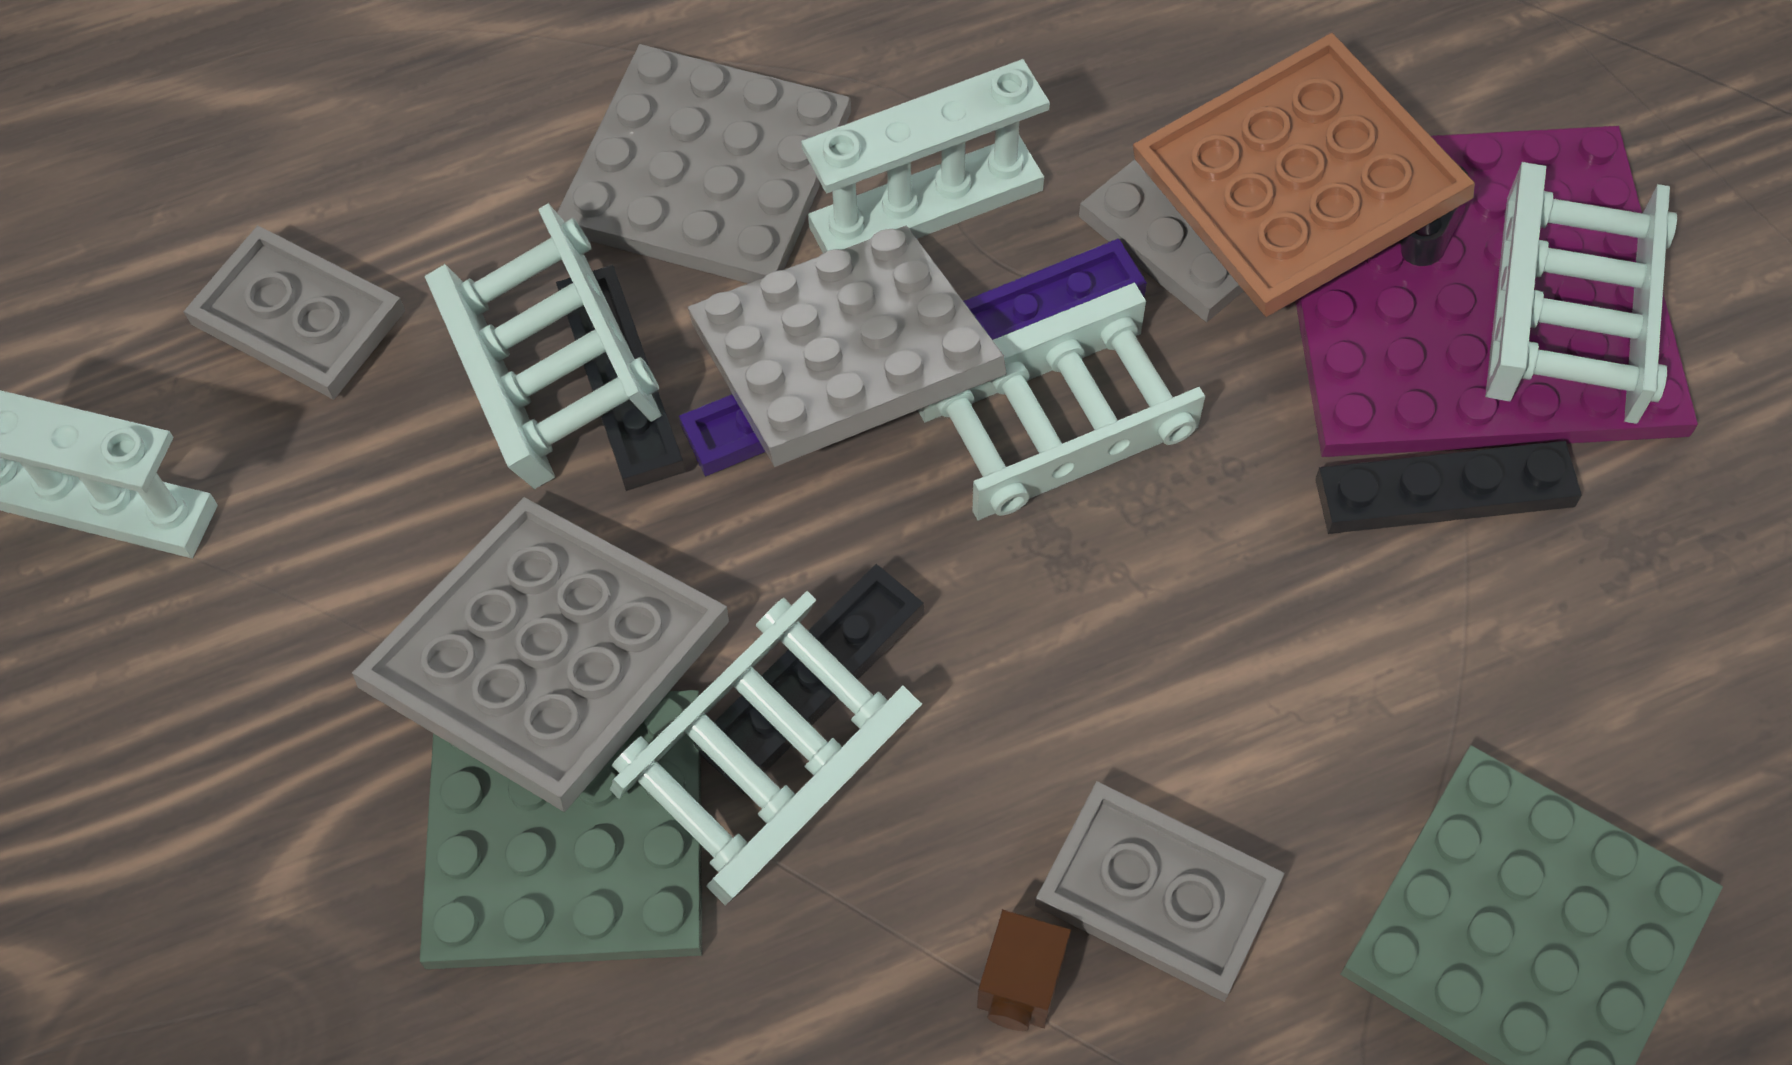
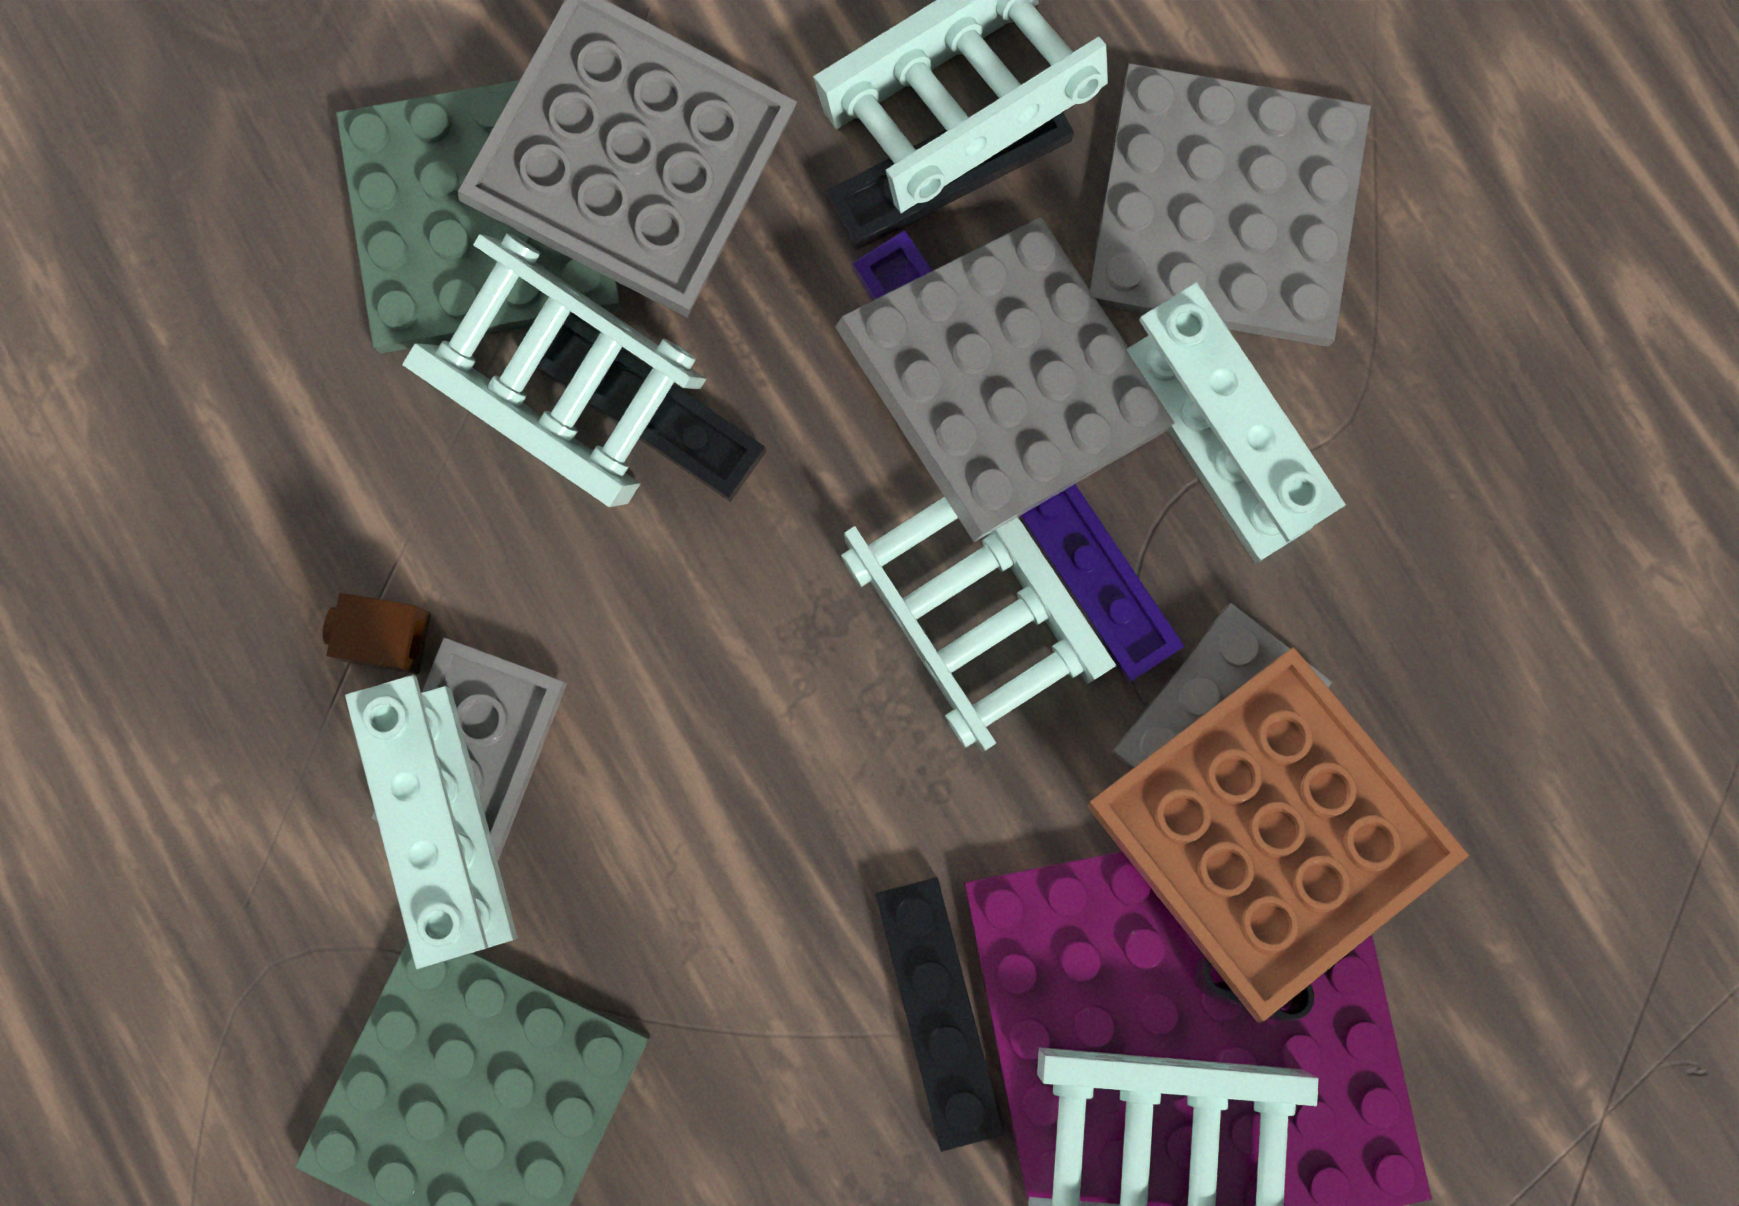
camera: 80 degrees right, 20 degrees up
(1250, 879) = (431, 820): none -> light aqua fence

